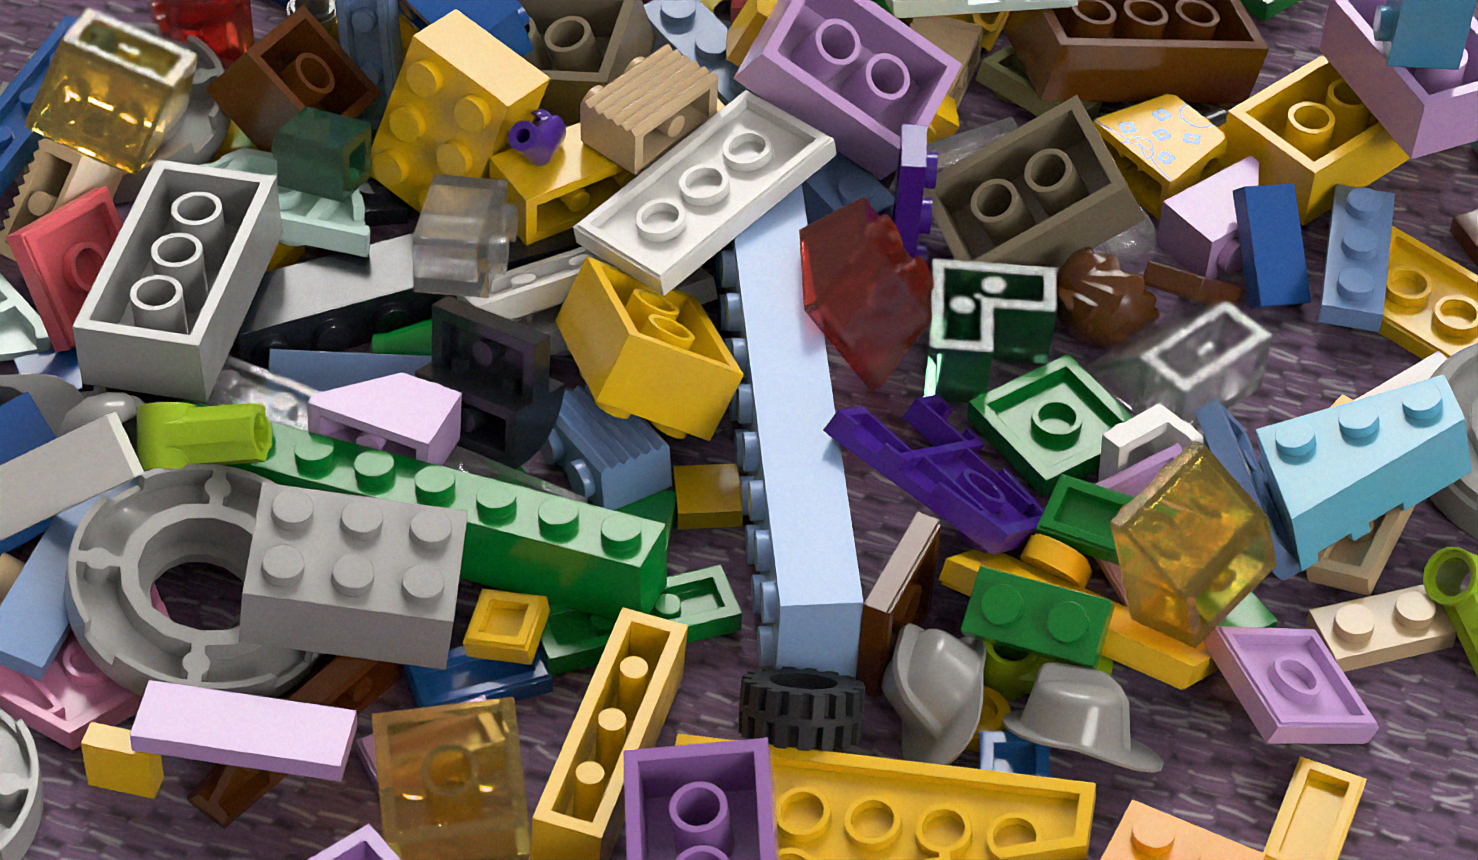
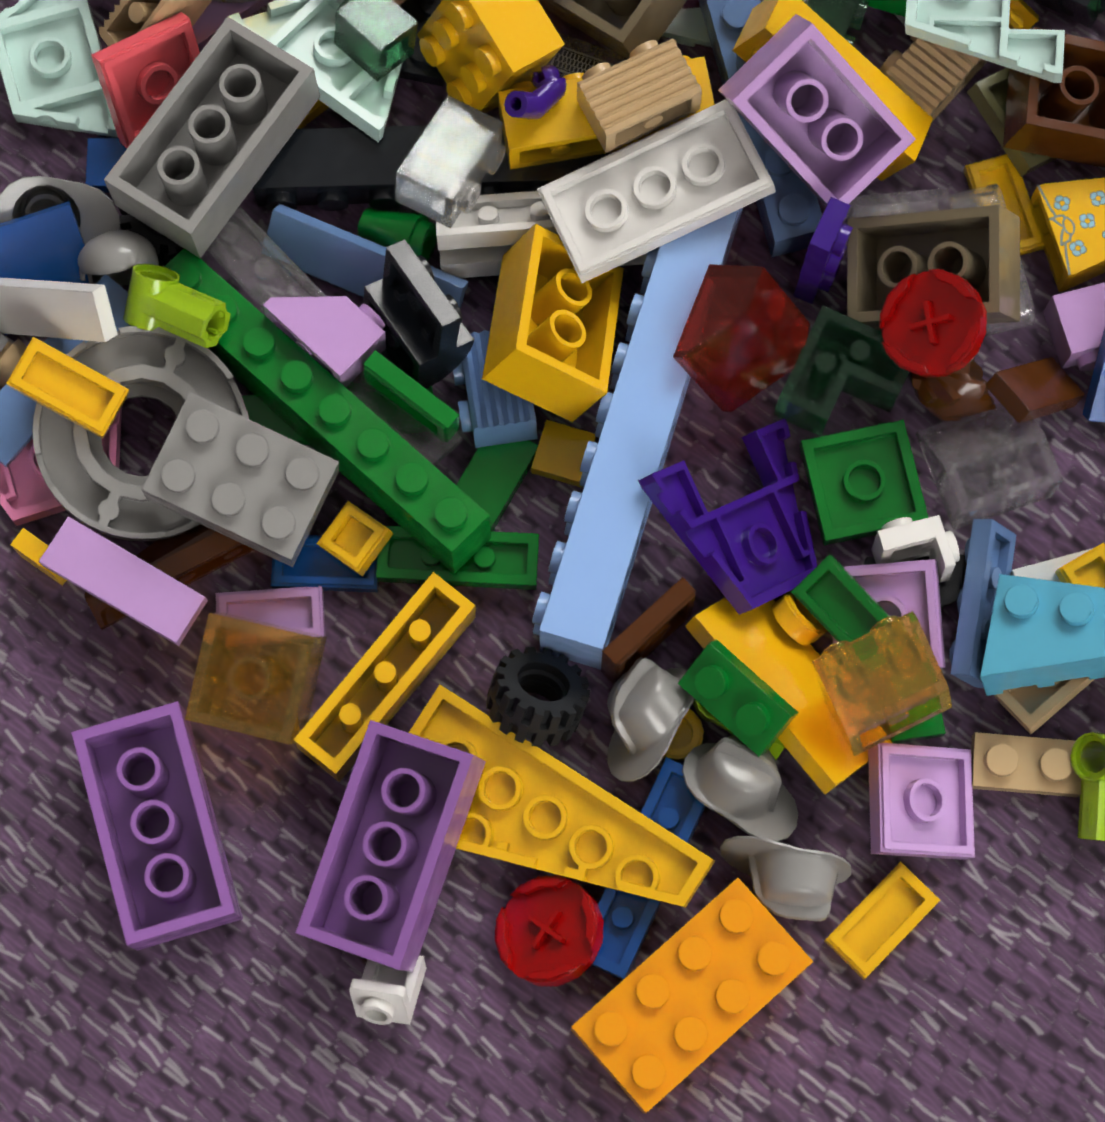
camera: 25 degrees right, 30 degrees up
(103, 539) = (67, 387): none -> yellow tile
(515, 455) = (410, 397): none -> green tile
(1061, 226) = (933, 323): none -> red tile
(1190, 778) = (788, 878): none -> light grey piece

